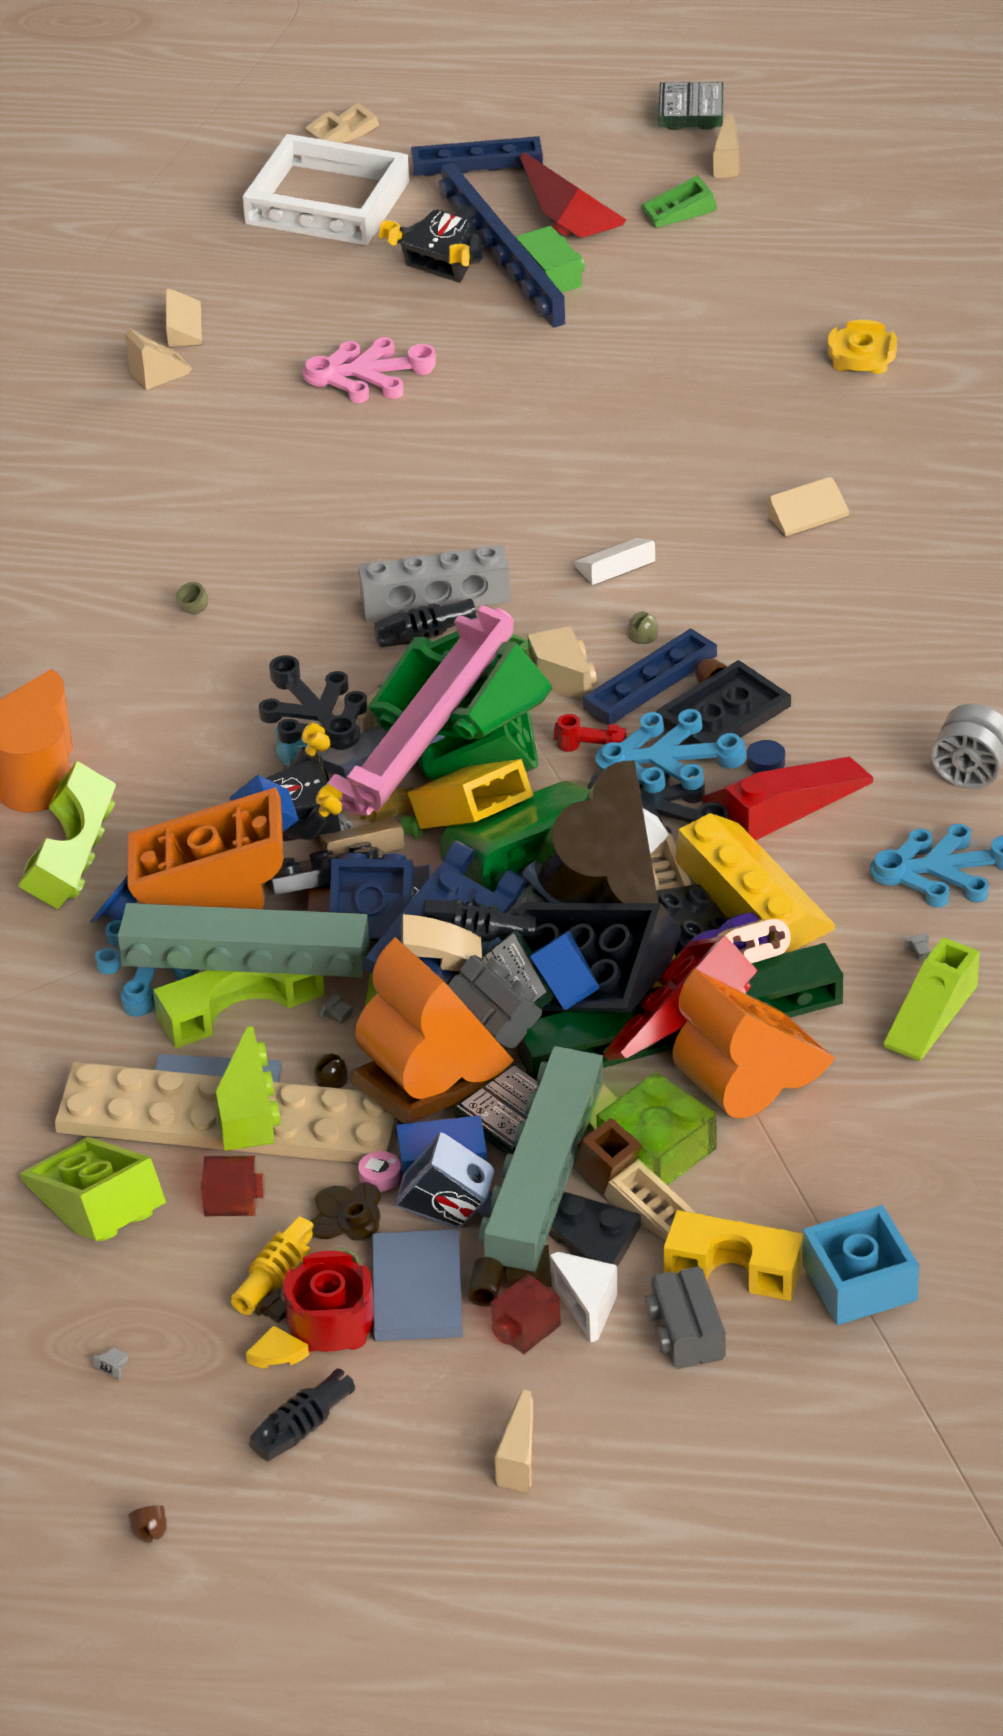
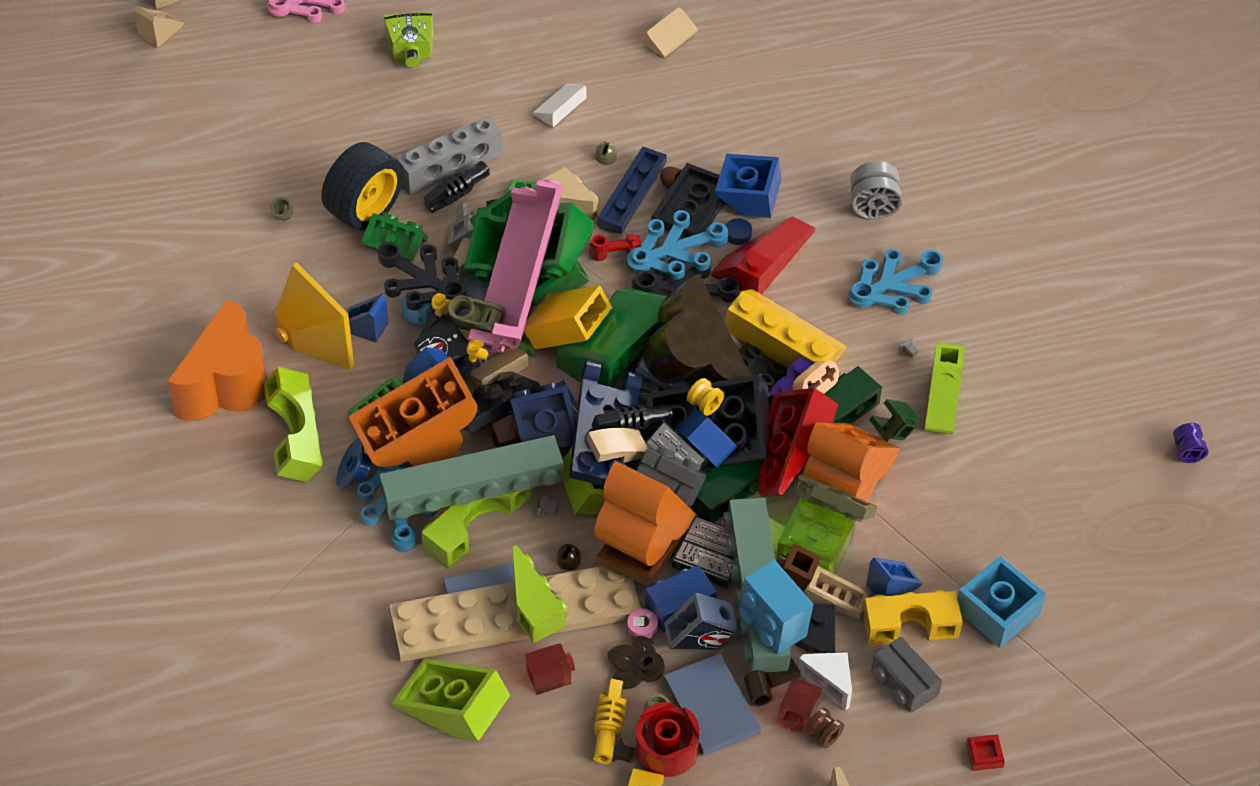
camera: 25 degrees left, 10 degrees up
(147, 724) = (313, 321): none -> yellow slope
(229, 745) = (369, 318): none -> blue slope
(295, 586) = (361, 184): none -> black wheel
(315, 656) = (388, 229): none -> green bracket
(342, 752) = (481, 314): none -> olive piece
(463, 439) = (410, 36): none -> lime torso
(529, 1172) = (775, 607): none -> dark azure brick
(543, 1348) = (824, 728): none -> reddish brown wheel
(581, 915) = (705, 396): none -> yellow wheel
(695, 1080) = (833, 498): none -> olive hinge
(733, 1198) = (891, 577): none -> blue slope
(746, 1439) = (985, 752): none -> red tile
(806, 701) = (750, 184): none -> blue slope
(847, 1026) = (899, 425): none -> dark green window

